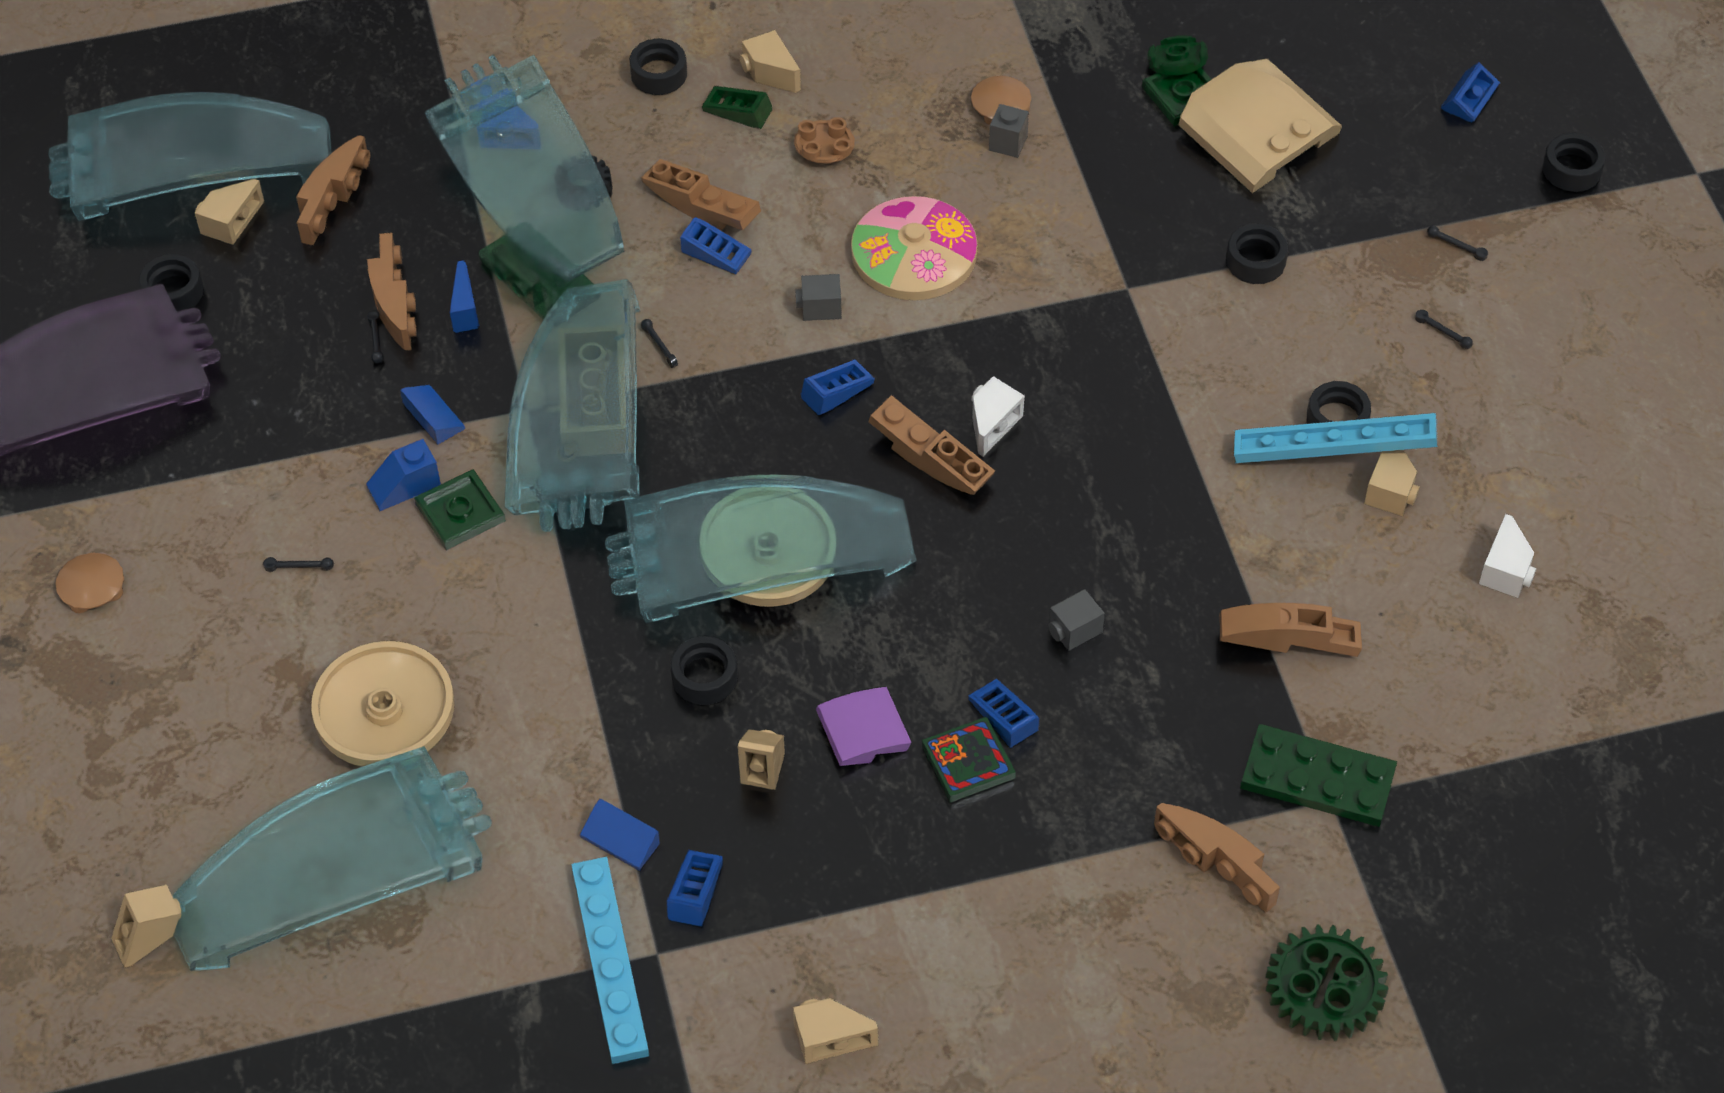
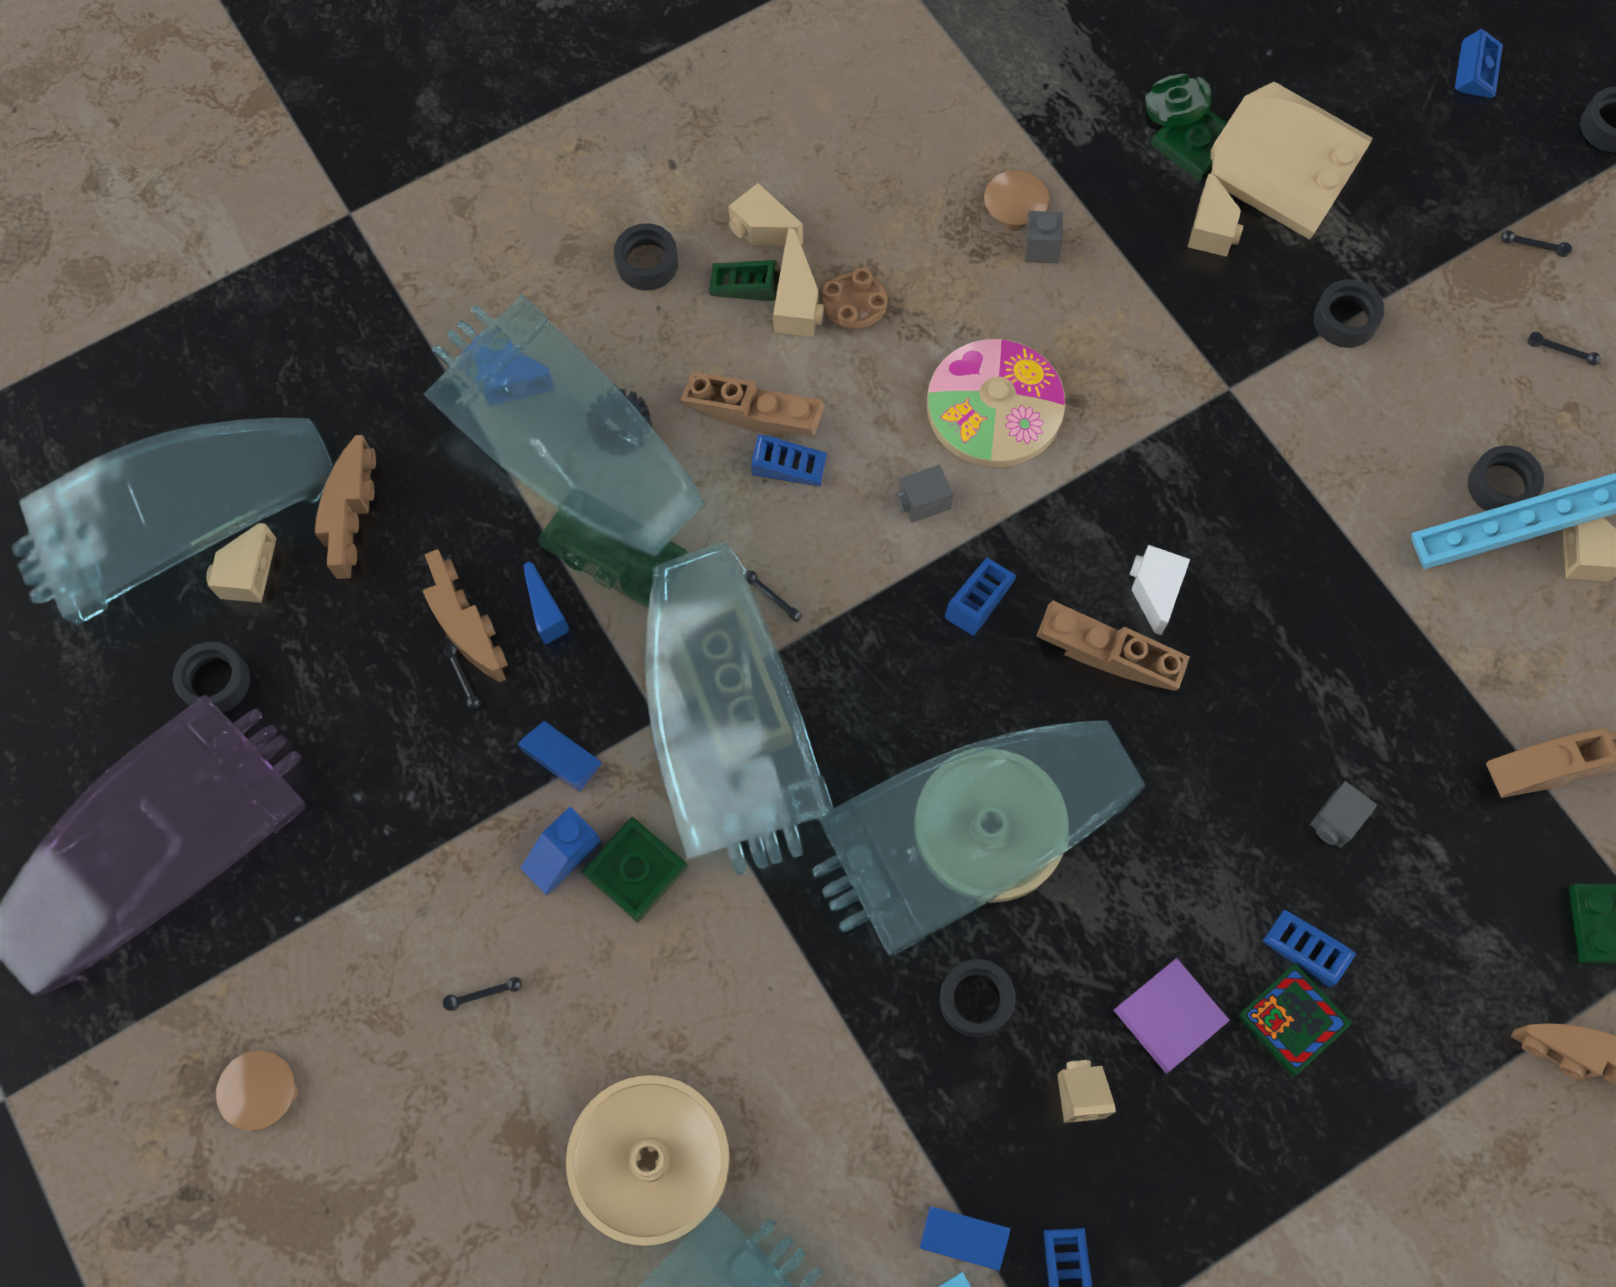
camera: 15 degrees left, 15 degrees up
(772, 127) = (797, 298): none -> tan slope
(1167, 154) = (1215, 220): none -> tan slope

